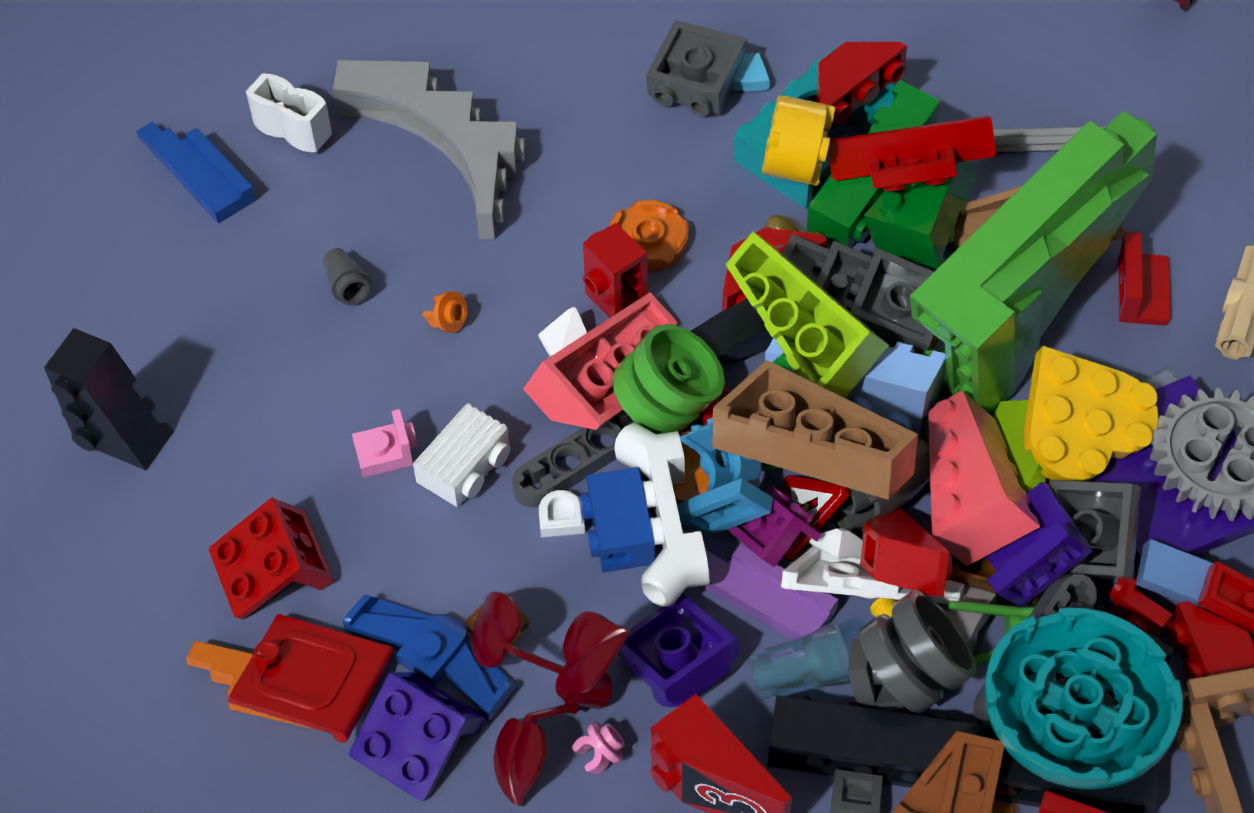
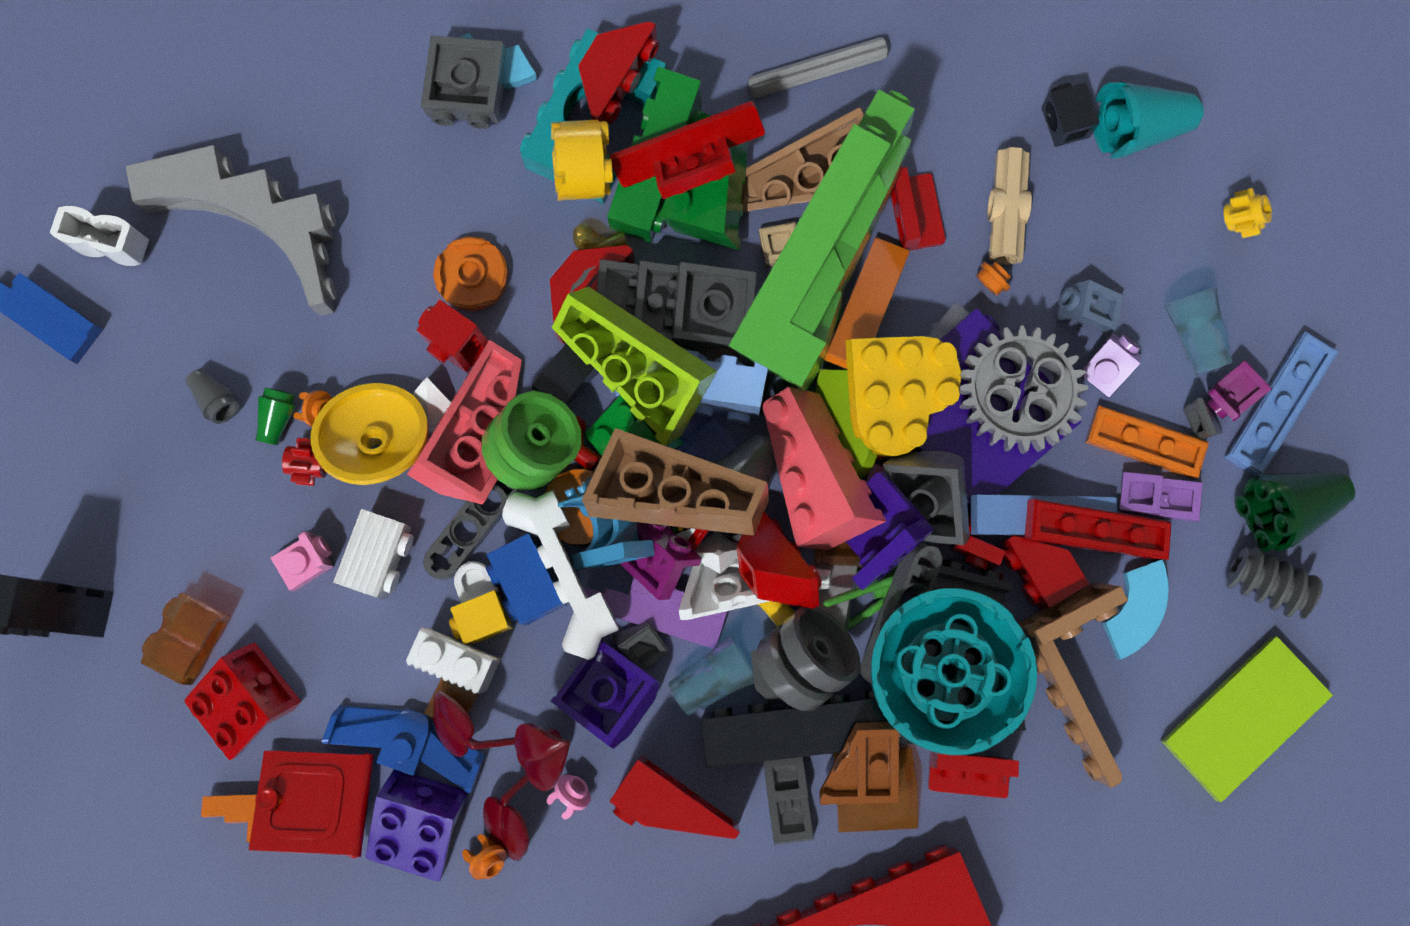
camera: 15 degrees left, 25 degrees up
(235, 484) = (184, 639): none -> clear orange brick
(403, 305) = (274, 413): none -> green cone
(421, 353) = (301, 463): none -> red gear
(485, 787) = (488, 861): none -> orange plate
(498, 338) = (366, 418): none -> yellow dish
(513, 569) = (452, 660): none -> white brick
(557, 544) = (479, 618): none -> yellow brick
(732, 614) = (641, 645): none -> dark grey slope
(1078, 335) = (869, 298): none -> orange tile
(1216, 361) = (993, 278): none -> orange plate

